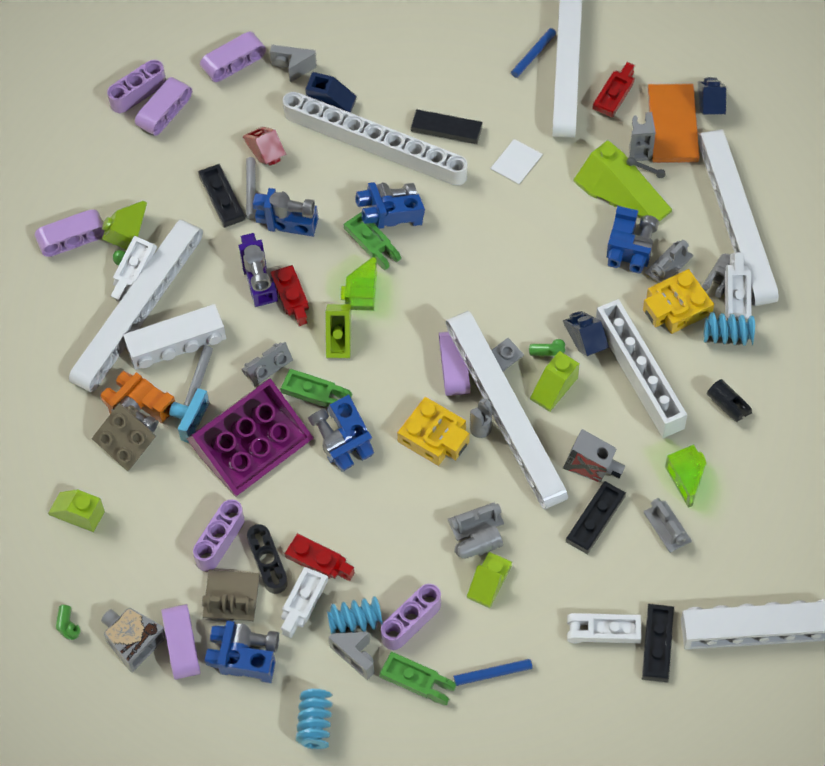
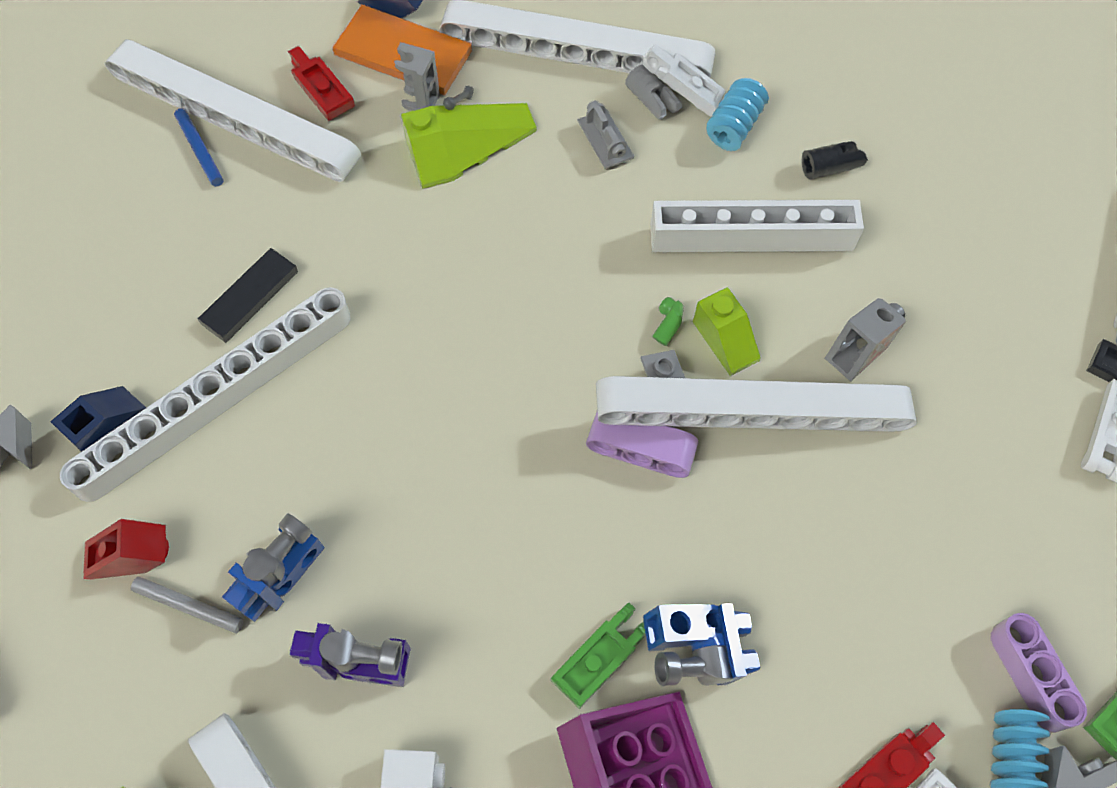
camera: 70 degrees left, 5 degrees up
(221, 195) = (172, 655): black tile -> none
(271, 362) = (516, 690): light grey hinge -> none
(291, 293) = (411, 621): red hinge -> none
(338, 330) = (515, 576): lime slope -> none
(361, 287) = (460, 514): clear neon green slope -> none
(371, 240) = (380, 467): bright green hinge -> none
(390, 205) = (342, 426): blue hips -> none
(434, 432) = (744, 515): yellow piece -> none
(476, 520) = (901, 520): light grey hinge -> none
(479, 543) = (943, 531): light grey hinge -> none
(481, 419) = (759, 442): light grey hinge -> none
(489, 579) = (1004, 547): lime slope -> none
(516, 161) = (353, 238): white sticker -> none
(586, 333) = (669, 265): dark blue slope -> none
(595, 517) = (942, 373): black tile -> none
(629, 247) = (553, 171): blue hips -> none
(667, 525) = (985, 297): light grey hinge -> none
(677, 302) = (668, 151): yellow piece -> none
(686, 470) = (923, 243): clear neon green slope -> none

